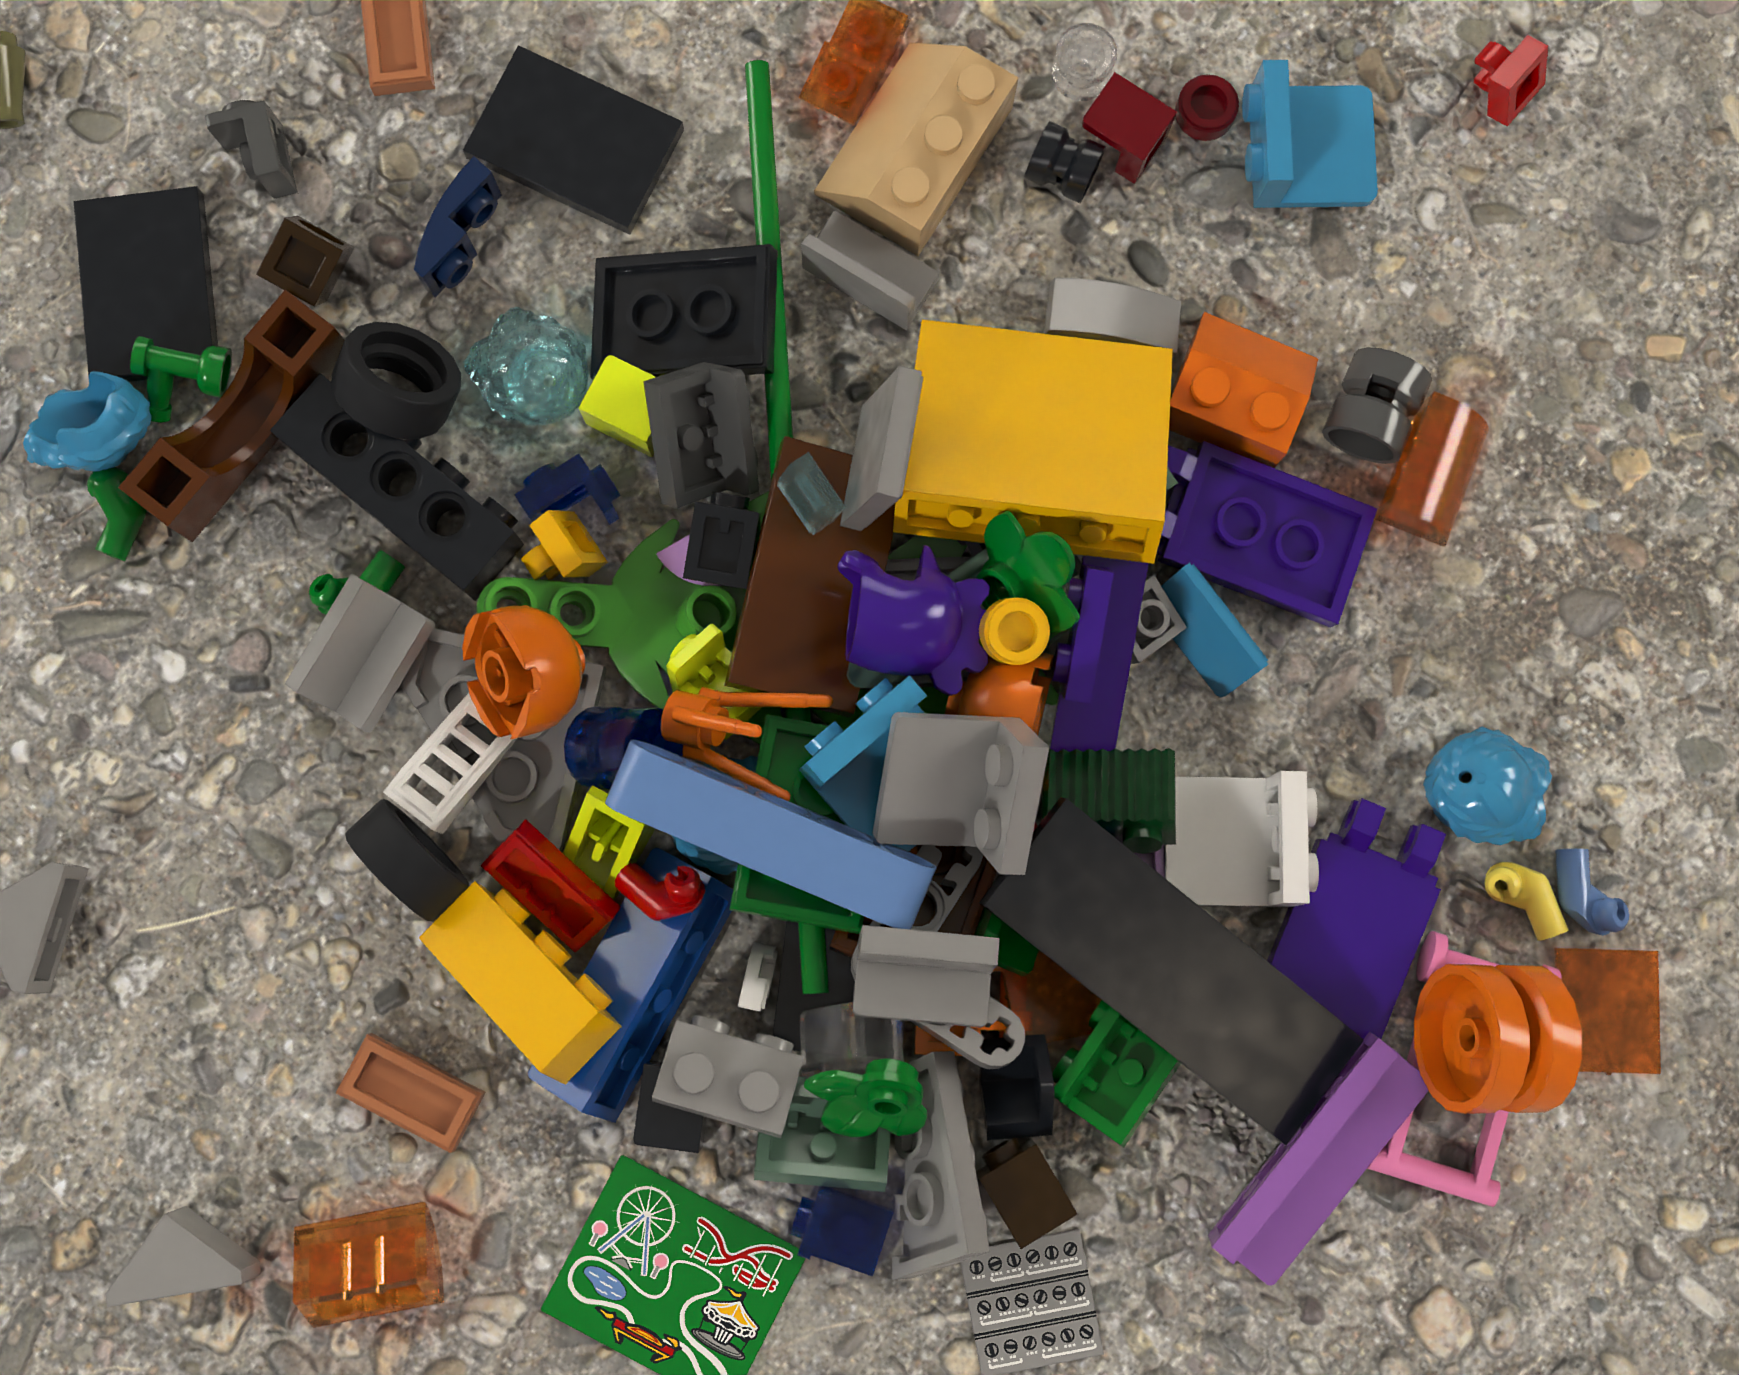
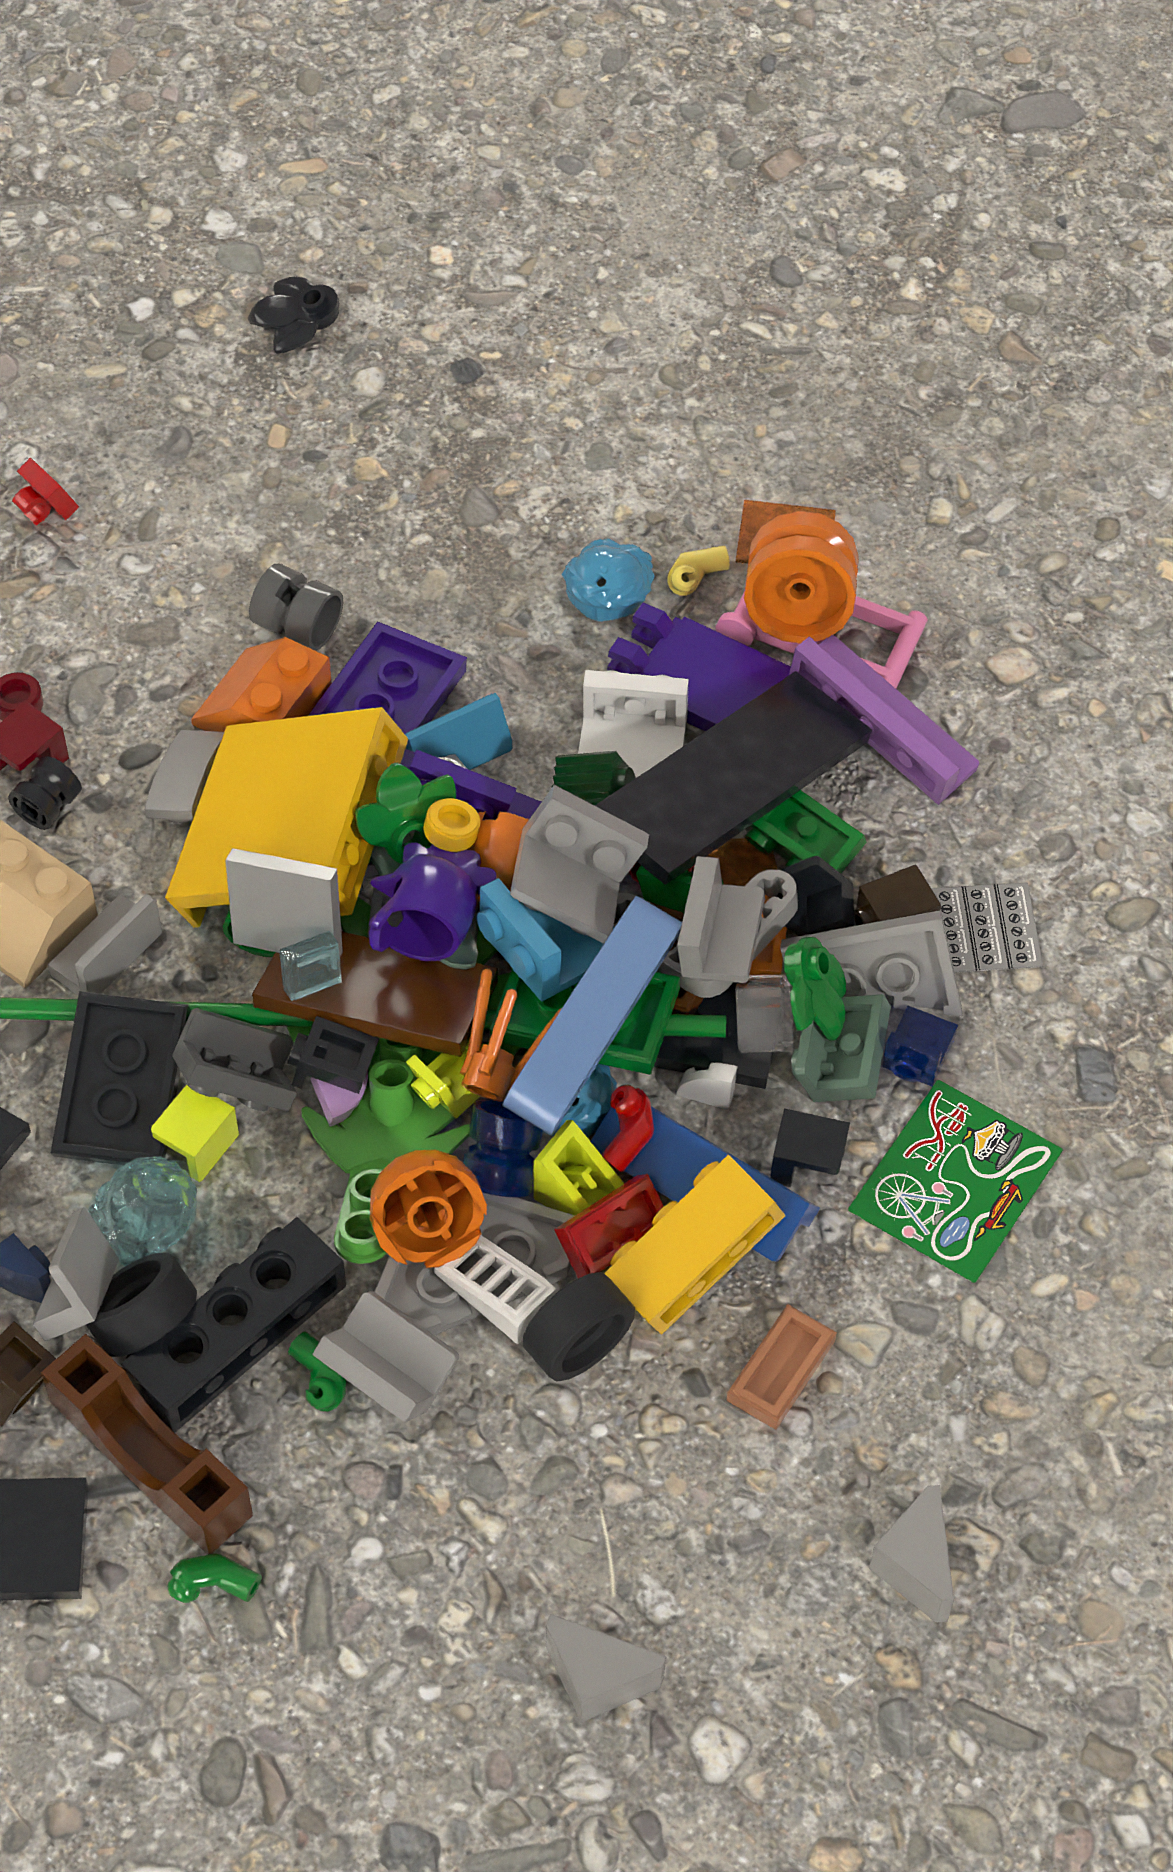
camera: 80 degrees left, 25 degrees down
(89, 426) = (127, 1581): dark azure hair -> none
(161, 364) = (94, 1470): green piece -> none
(367, 1265) = (929, 1404): clear orange brick -> none
(412, 309) = (80, 1278): none -> light grey panel
(564, 547) = (314, 1195): yellow tile -> none
(566, 486) = (256, 1176): clear blue bracket -> none
(728, 1075) = (787, 1090): light grey bracket -> none
(1308, 142) = (65, 630): dark azure bracket -> none
(1434, 469) = (367, 590): clear orange brick -> none
(1583, 900) = (701, 536): medium blue arm -> none

